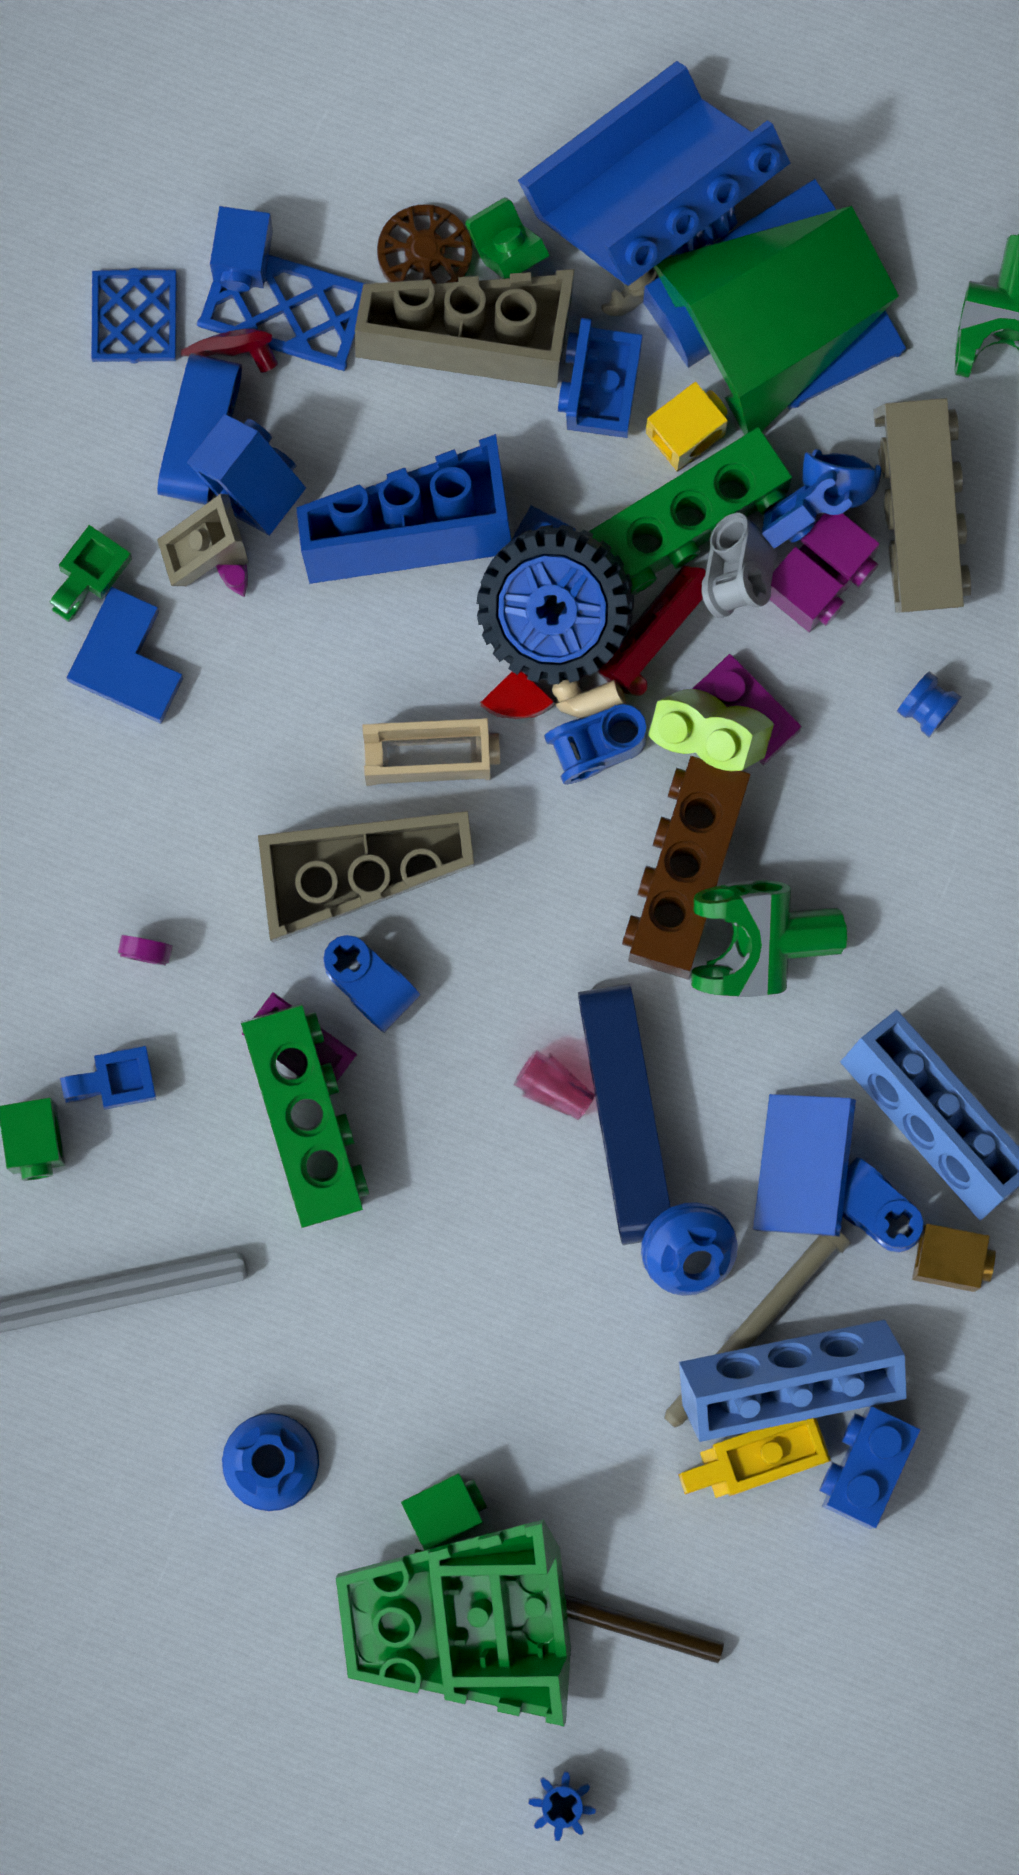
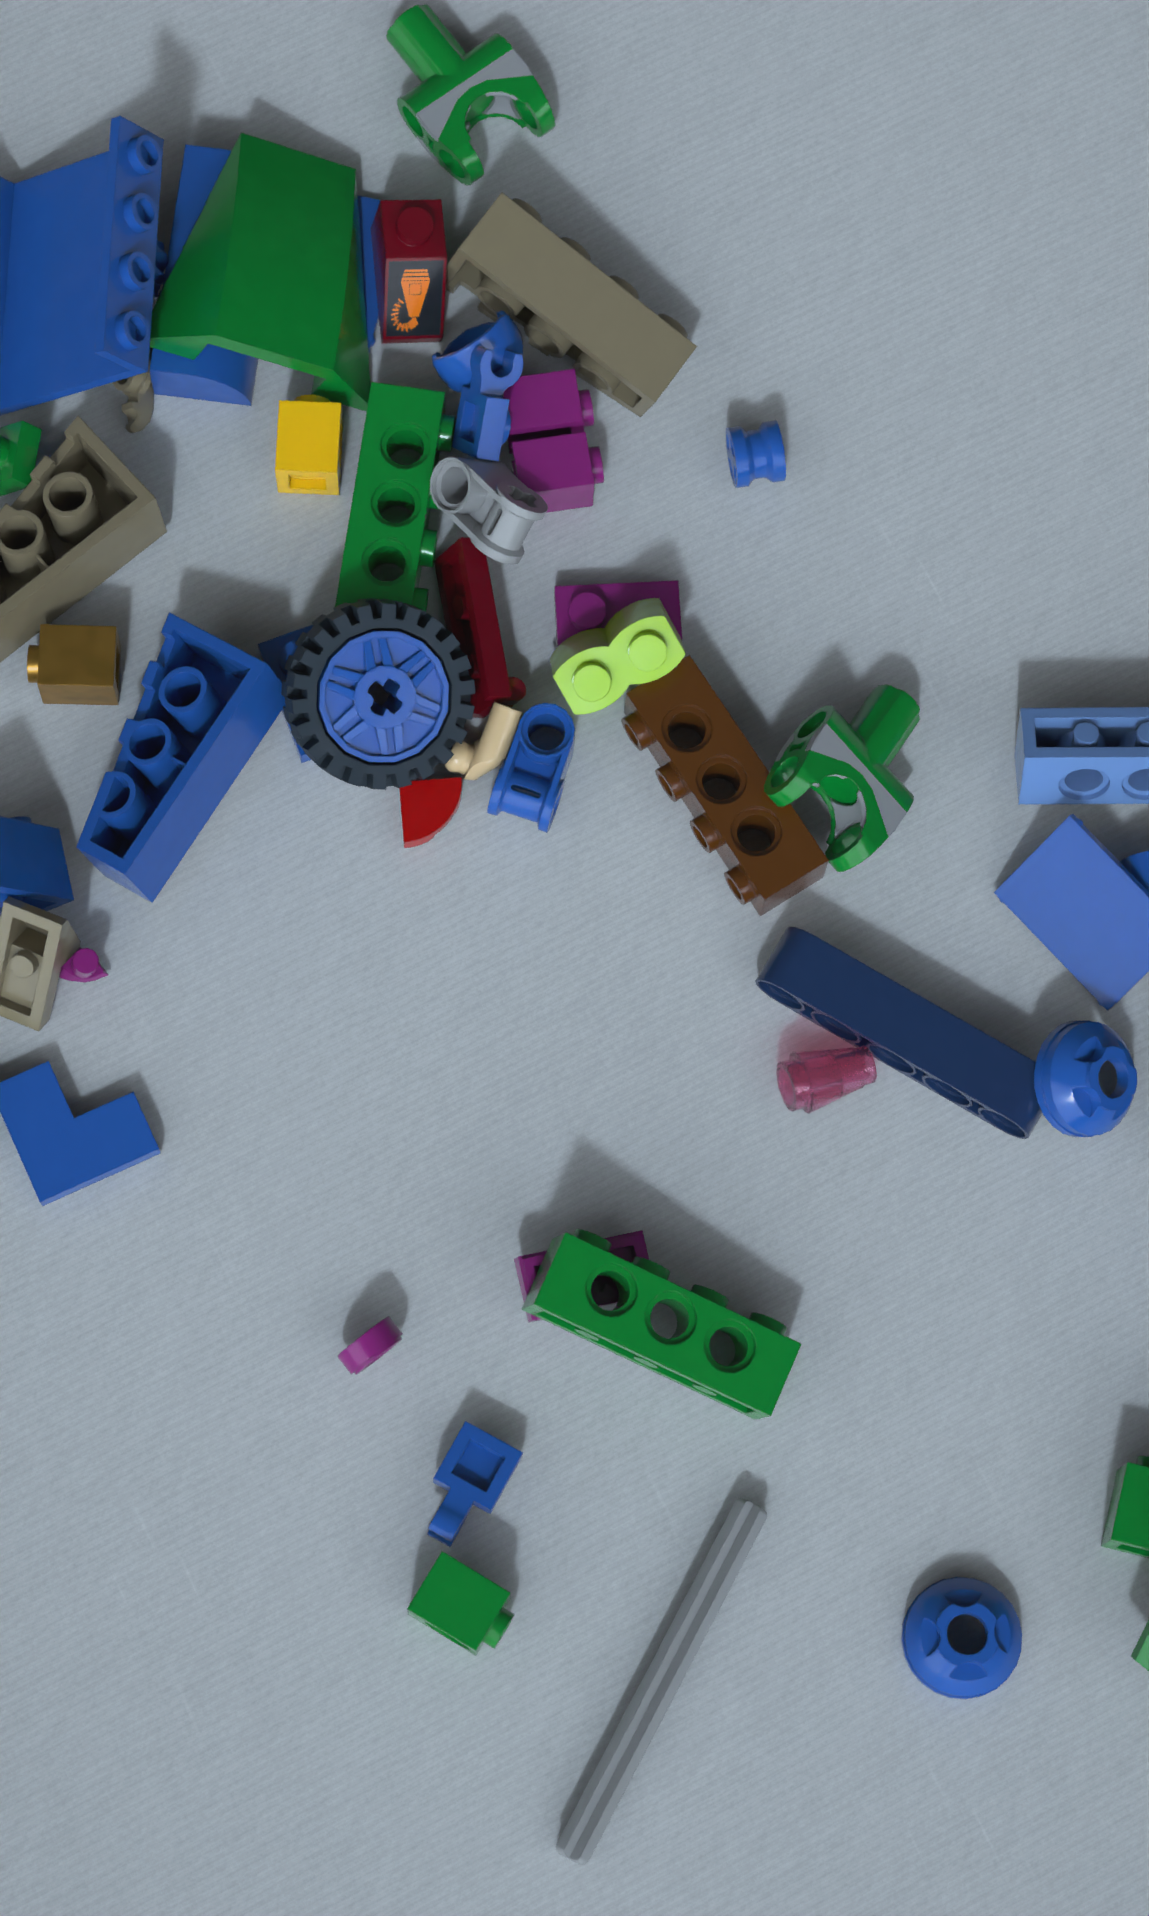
camera: 55 degrees left, 5 degrees down
(346, 868) = (457, 1095): dark tan wedge -> none
(375, 988) = (593, 1162): blue piece -> none
(420, 408) = (76, 664): none -> pearl gold brick
(429, 751) = (410, 926): tan window -> none
(602, 380) = (200, 485): blue bracket -> none
(858, 388) = (410, 270): none -> slope

